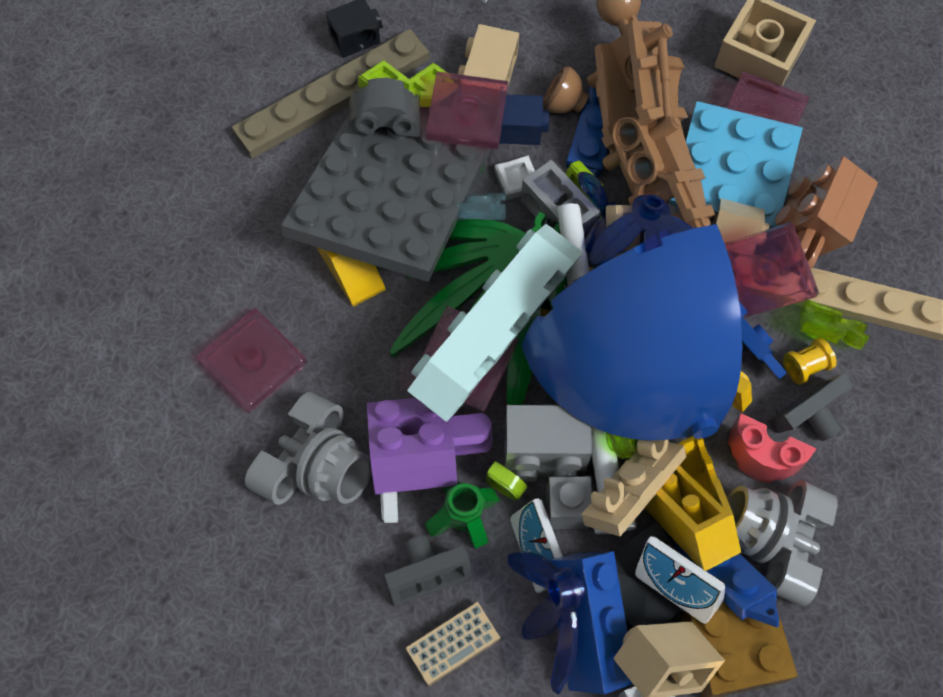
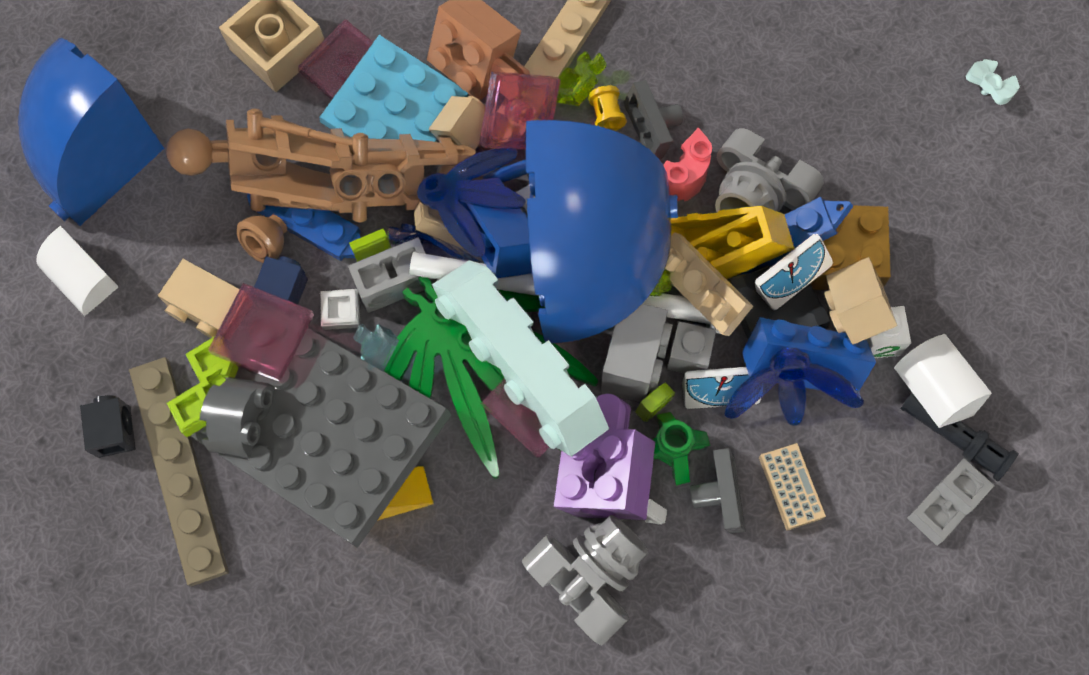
camera: 70 degrees left, 5 degrees up
(251, 360) = (465, 616): clear pink plate -> none

